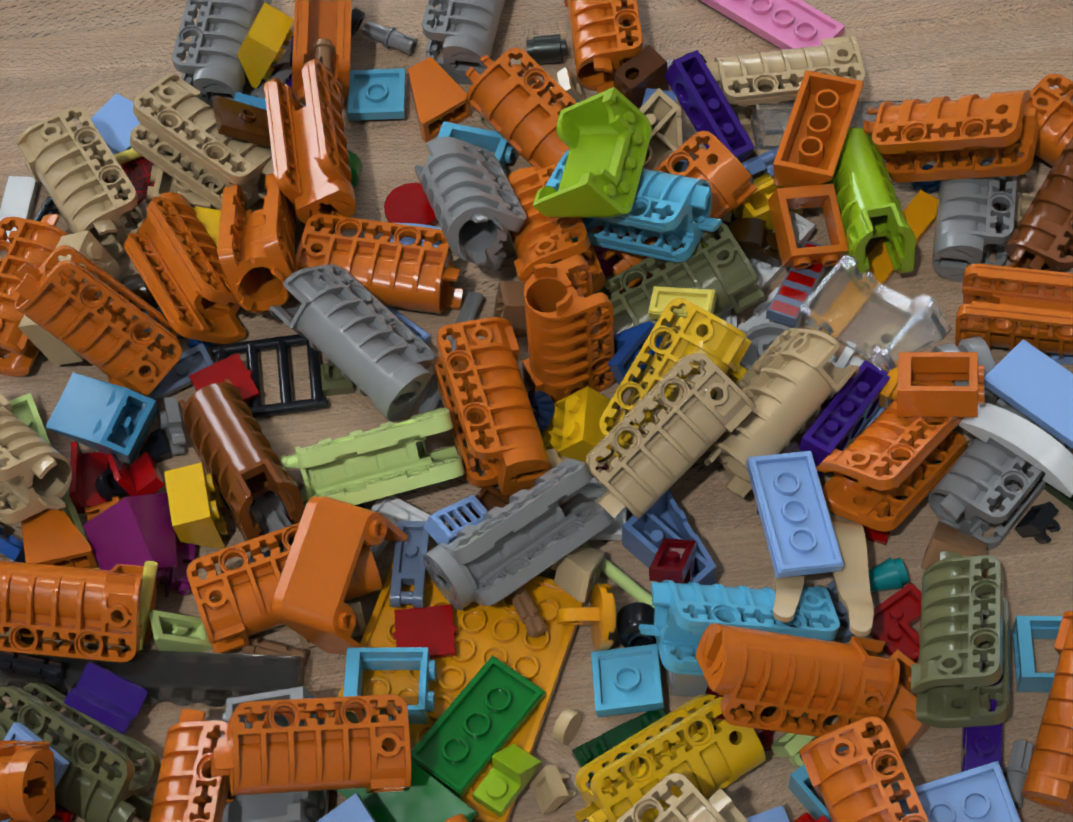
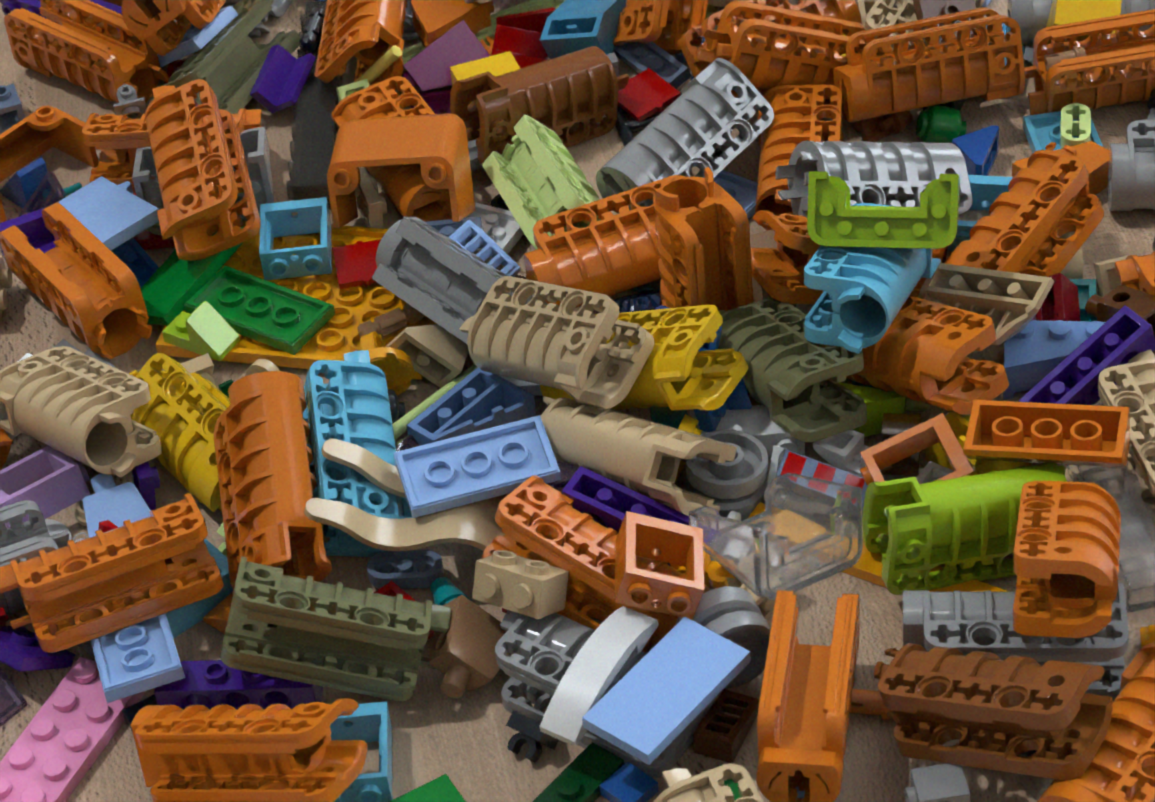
camera: 85 degrees right, 15 degrees down
(383, 78) = (1075, 128): none -> yellowish green beam
(392, 152) = (979, 149): none -> blue slope
(663, 295) = (743, 344): light yellow tile -> none
(674, 561) = (426, 395): dark red slope -> none
(936, 489) = (520, 584): none -> tan brick

